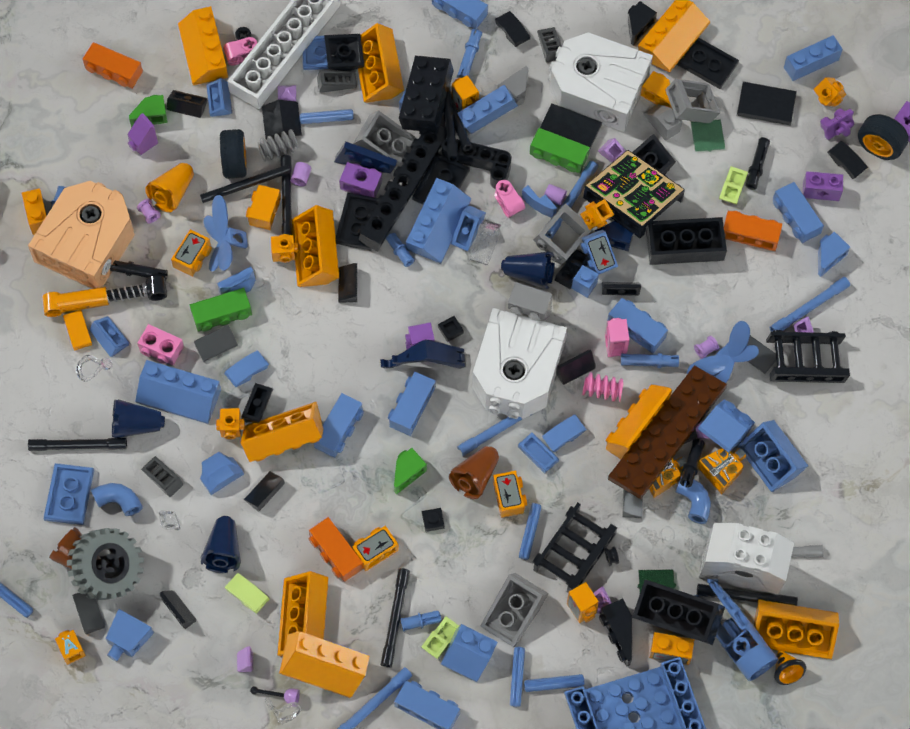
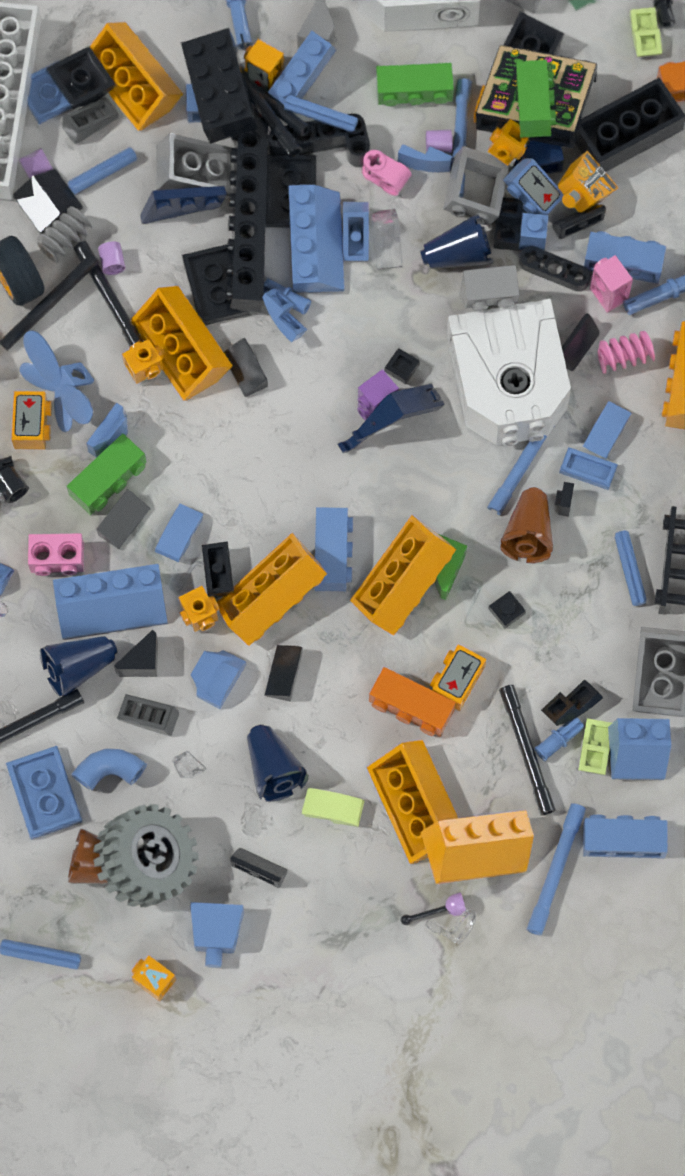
camera: 25 degrees left, 5 degrees up
(88, 613) = (151, 926): dark grey slope -> none
(177, 437) = (141, 659): none -> black slope
(245, 660) = (375, 888): lavender slope -> none
(264, 207) = (89, 321): light orange brick -> none
(350, 183) = (182, 242): medium lavender brick -> none
(373, 463) = (402, 575): none -> light orange slope
(389, 254) = (279, 308): none -> medium blue slope
(411, 403) = (405, 479): medium blue brick -> none
(440, 603) = (580, 700): none -> black slope
(483, 141) = (320, 113): none -> medium blue axle
(509, 494) = (582, 534): brick -> none
(510, 463) = (564, 498): none -> black plate
(571, 125) = (410, 45): black tile -> none
(586, 303) = (534, 268): none -> black beam
(611, 150) = (476, 55): lavender slope -> none
(627, 192) = (535, 98): none -> bright green brick
(635, 265) = (585, 184): none -> light orange torso

